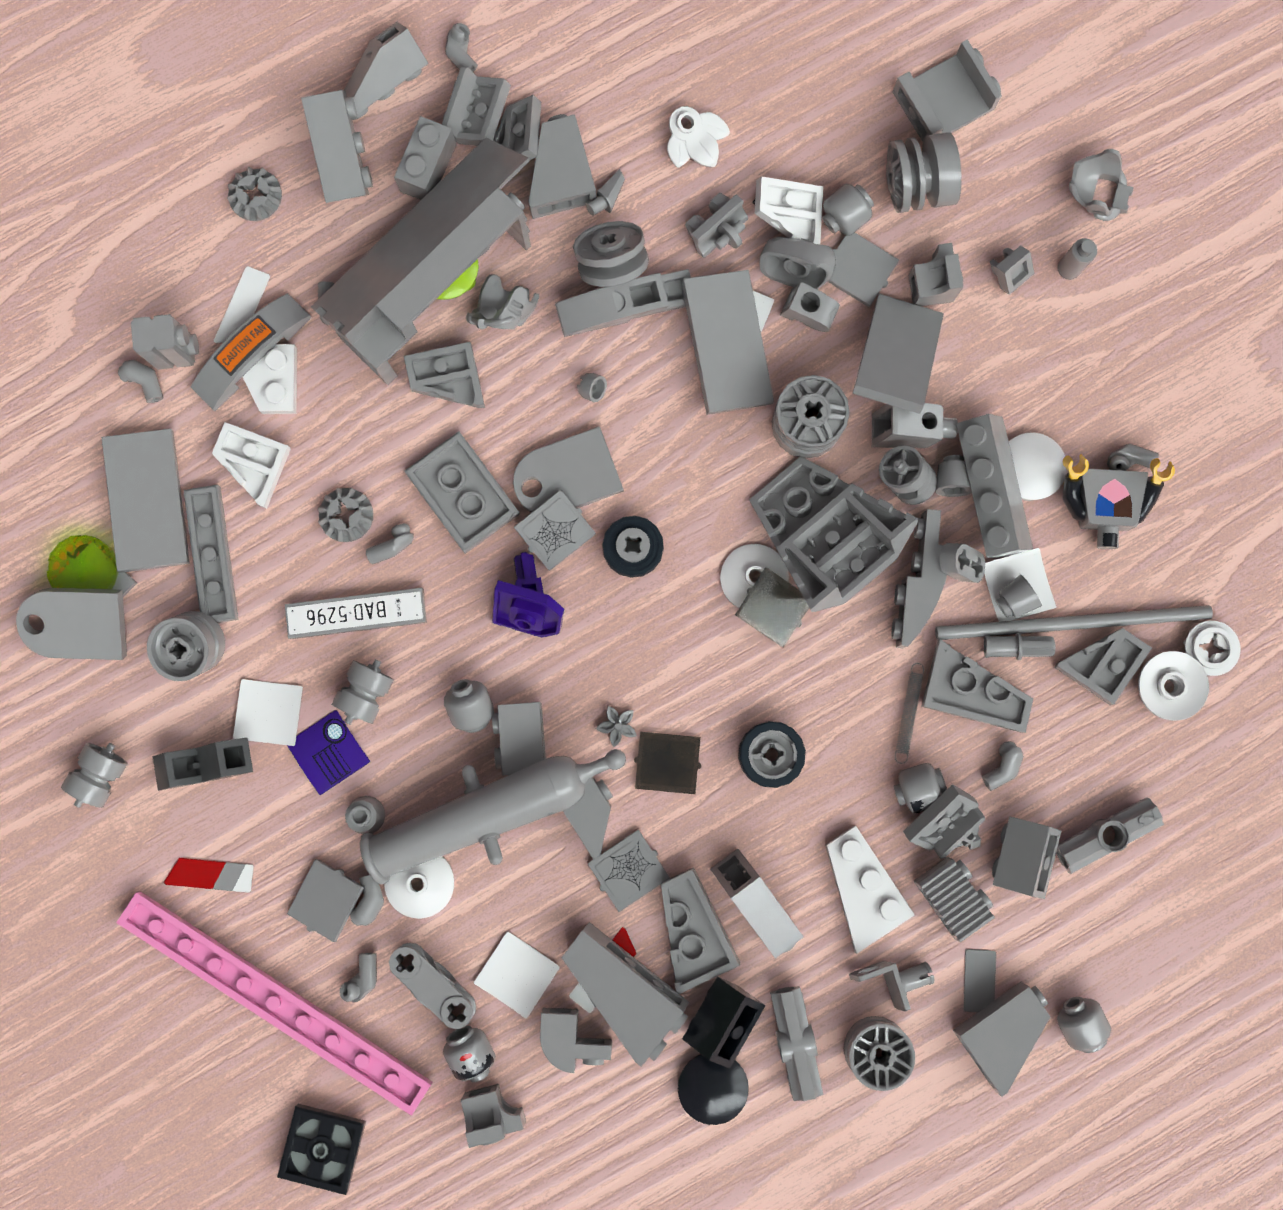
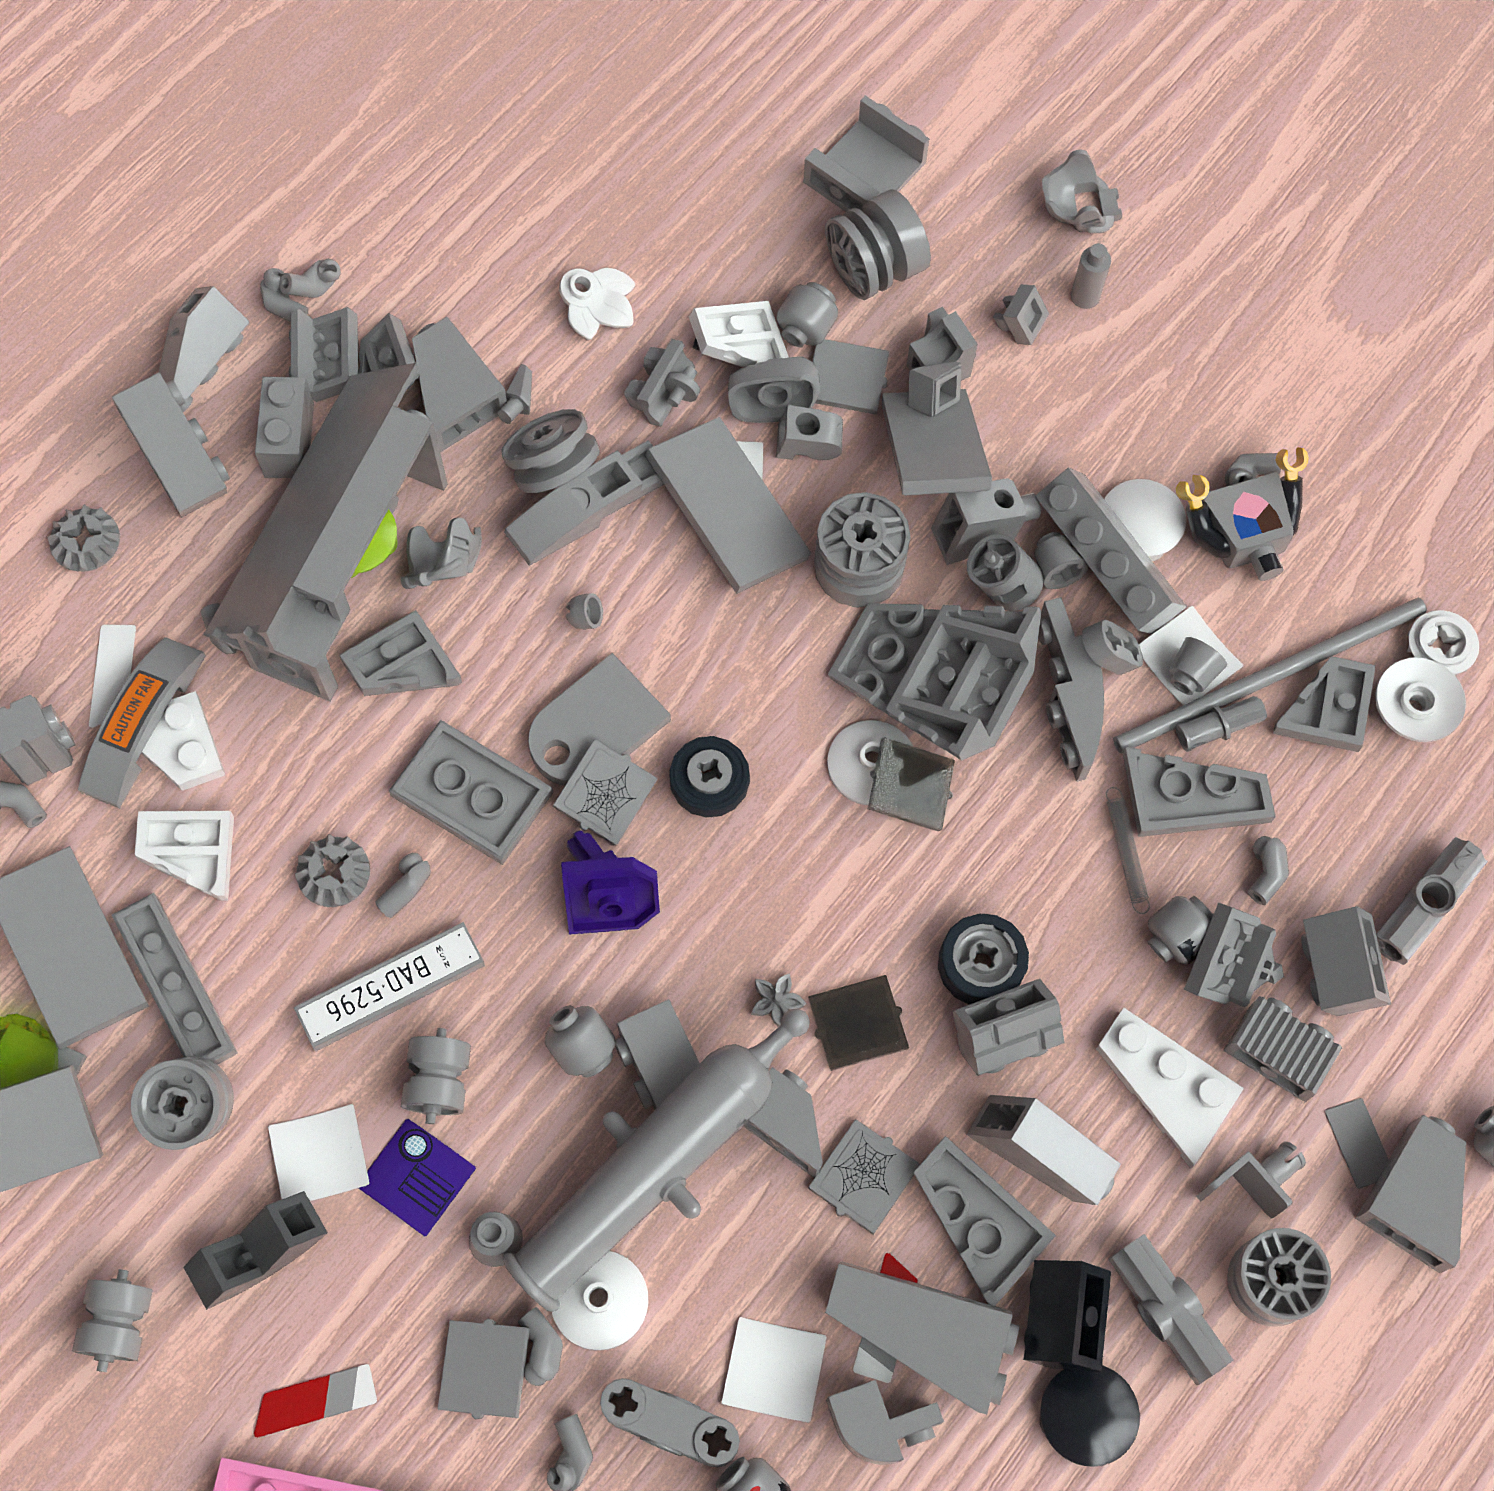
camera: 25 degrees left, 15 degrees down
(488, 44) = (313, 281): none -> light grey arm
(768, 811) = (1008, 1027): none -> light grey brick
(917, 309) = (934, 387): none -> light grey slope

